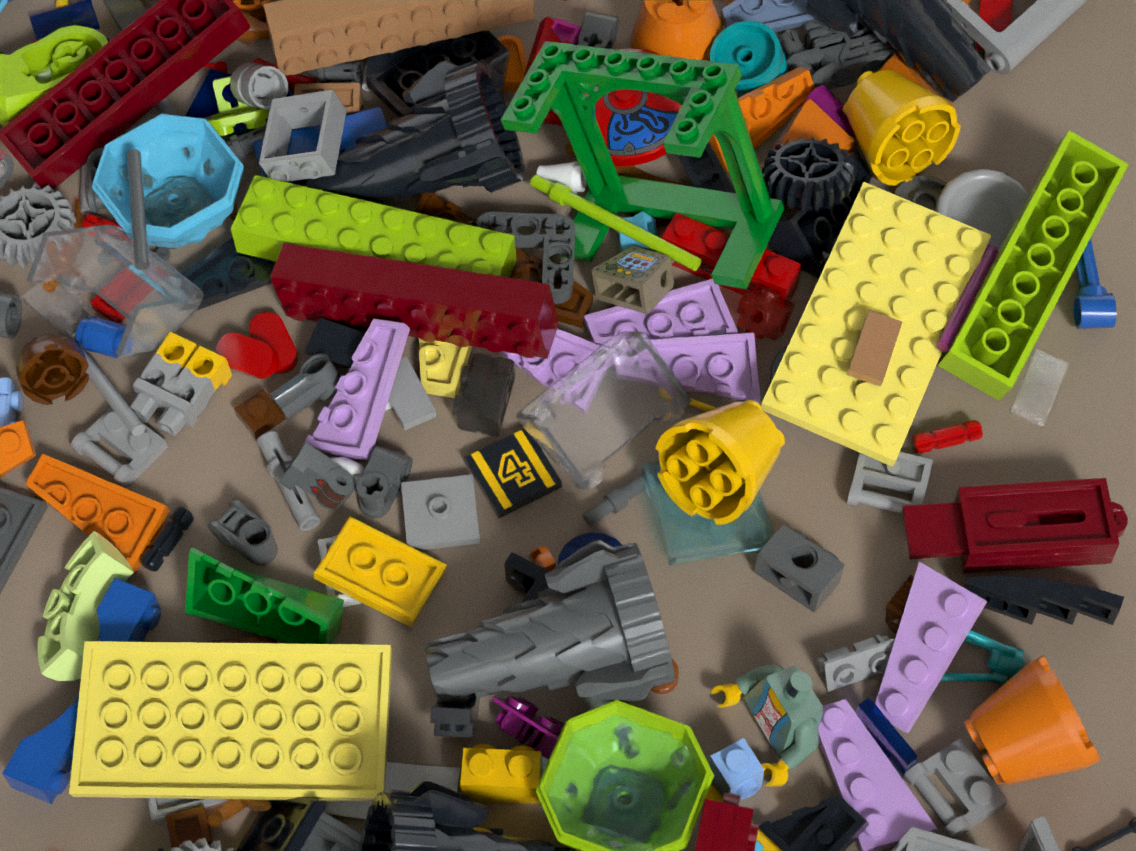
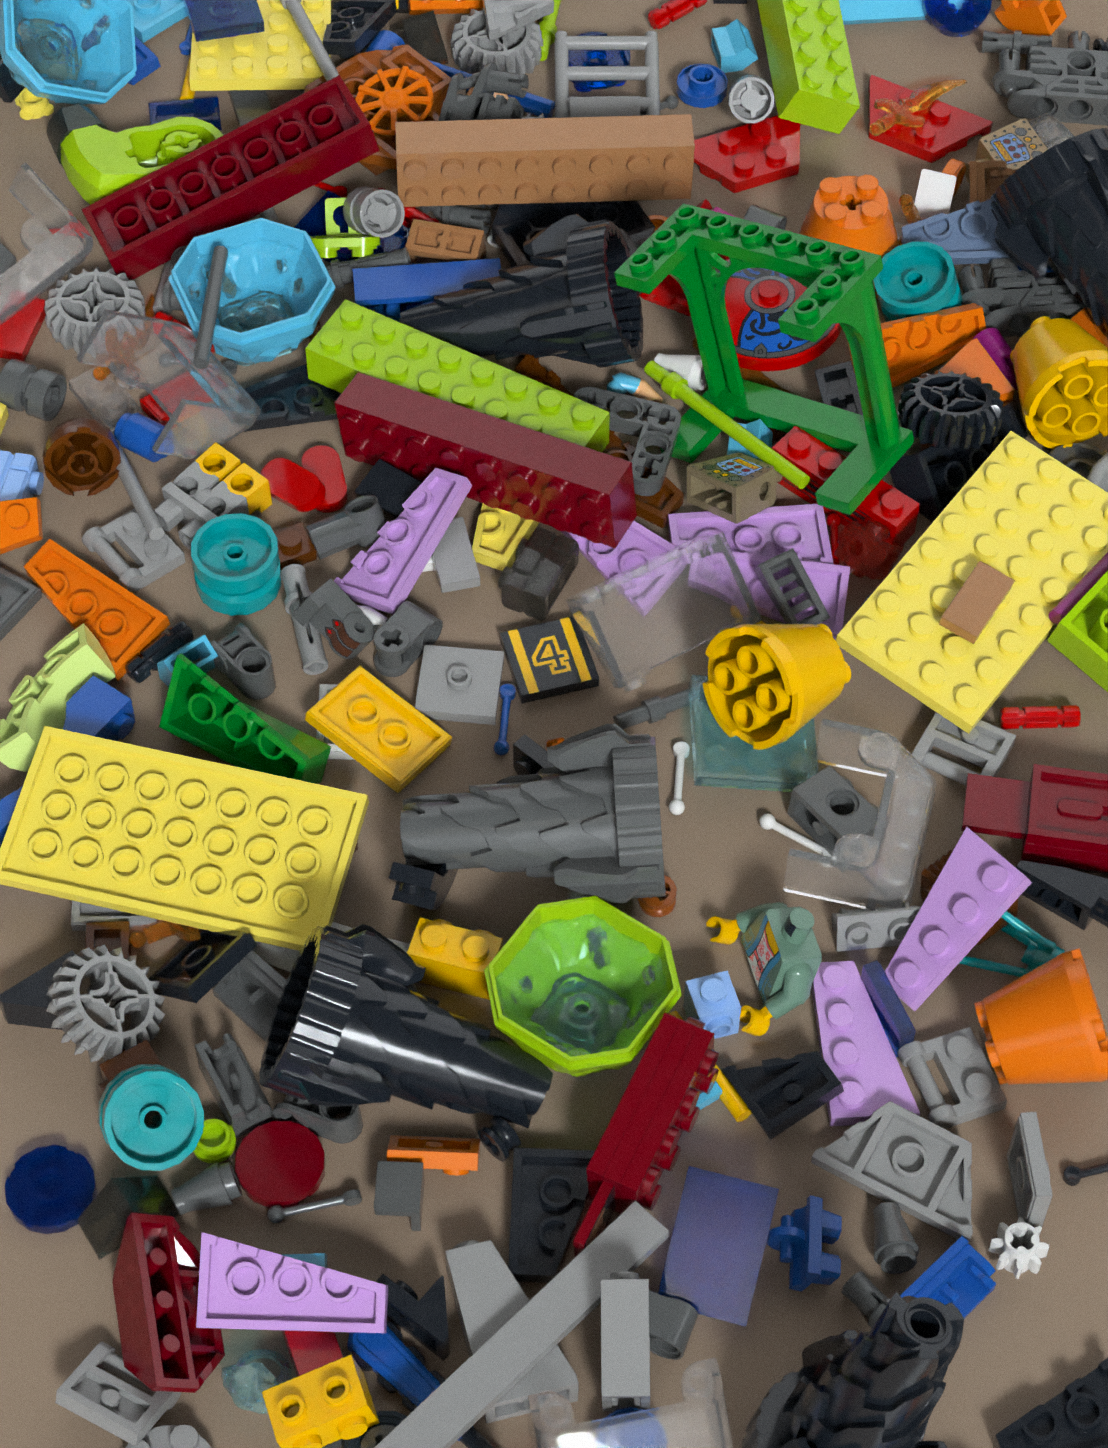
camera: 10 degrees right, 5 degrees down
(199, 529) = (195, 649): none -> medium azure piece
(216, 443) = (236, 564): none -> teal wheel
(287, 114) = (395, 245): light grey window -> none
(484, 512) = (507, 693): none -> blue hinge
(524, 713) = (493, 908): magenta hinge -> none
(527, 200) = (638, 387): none -> arm
(648, 534) = (680, 751): none -> white hinge
(711, 349) = (797, 573): none -> dark grey slope
(727, 293) = (833, 521): none -> red hinge
(740, 584) = (768, 821): none -> white hinge
(841, 612) = (878, 867): none -> clear windscreen

